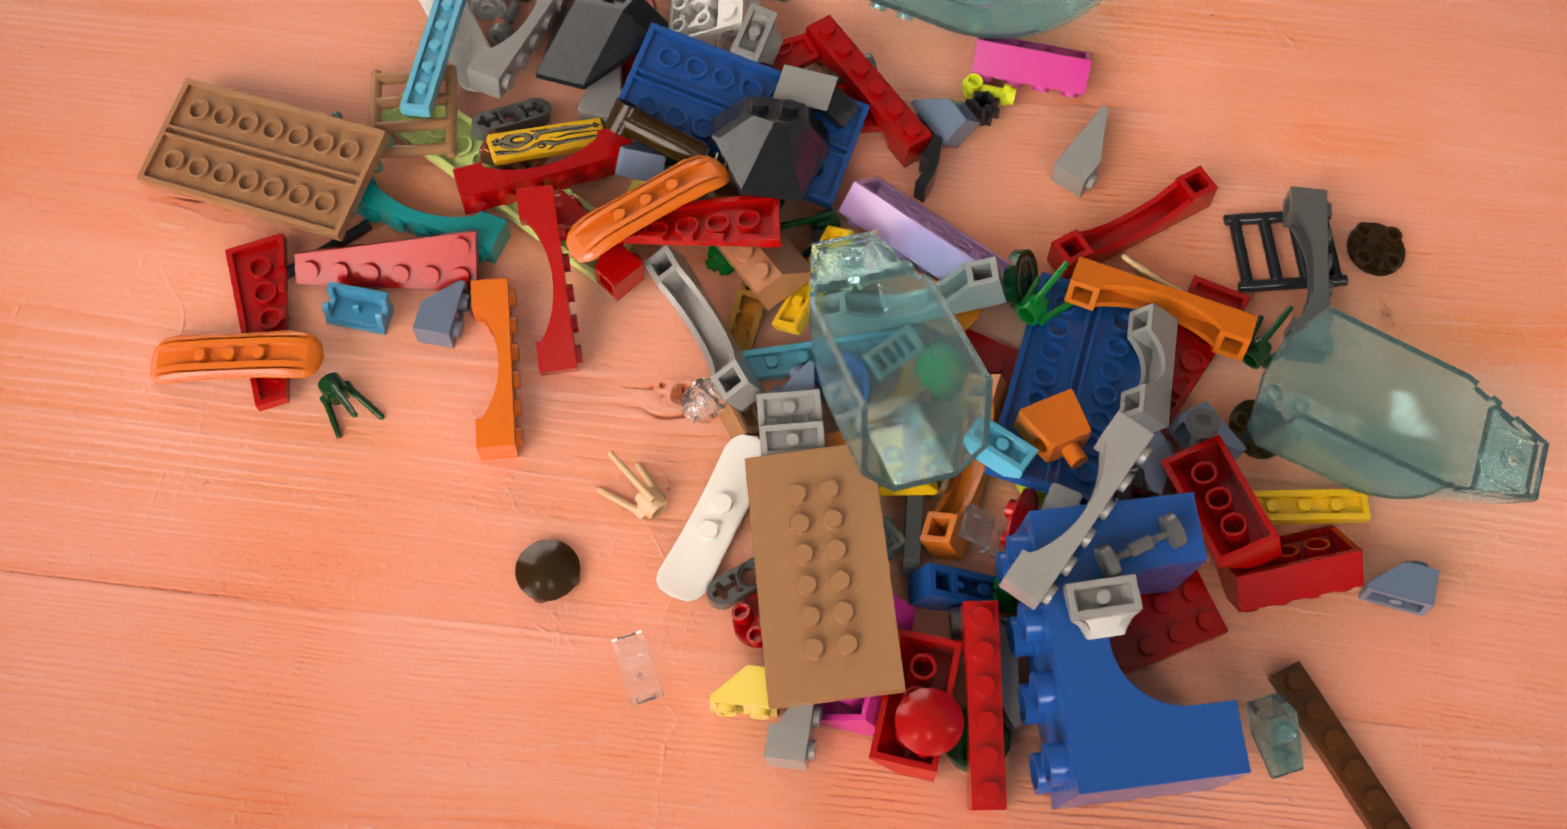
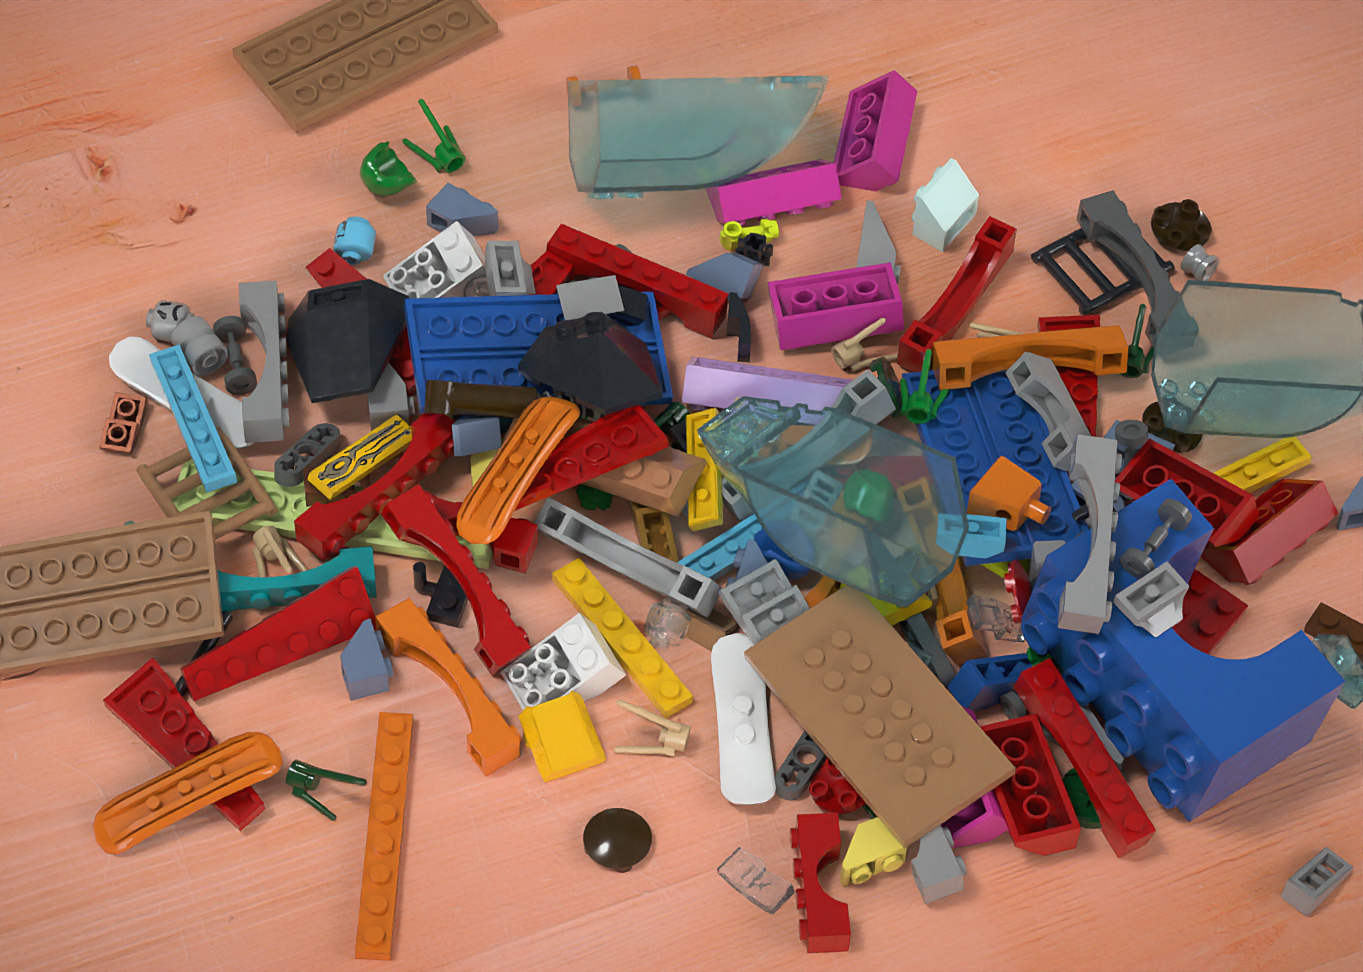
camera: 30 degrees left, 10 degrees down
(358, 308) = (275, 693): dark azure hinge -> none
(365, 473) = (384, 837): none -> orange plate
(392, 35) = (124, 423): none -> copper slope
(434, 183) = (272, 547): none -> tan plant
(540, 295) = (447, 598): none -> black plate
(558, 457) = (561, 736): none -> yellow slope
(597, 399) = (564, 662): none -> white slope
(665, 395) = (623, 638): none -> yellow plate
(705, 663) = (825, 918): none -> red arch
(929, 722) = (1050, 788): red dish -> none
(1011, 230) = (849, 351): none -> tan plant
(1019, 186) = (835, 305): none -> dark pink slope
(1149, 50) = (875, 133): none -> dark pink slope
(1169, 139) = (944, 206): none -> light aqua slope
(1372, 290) = (1199, 263): none -> light grey wheel

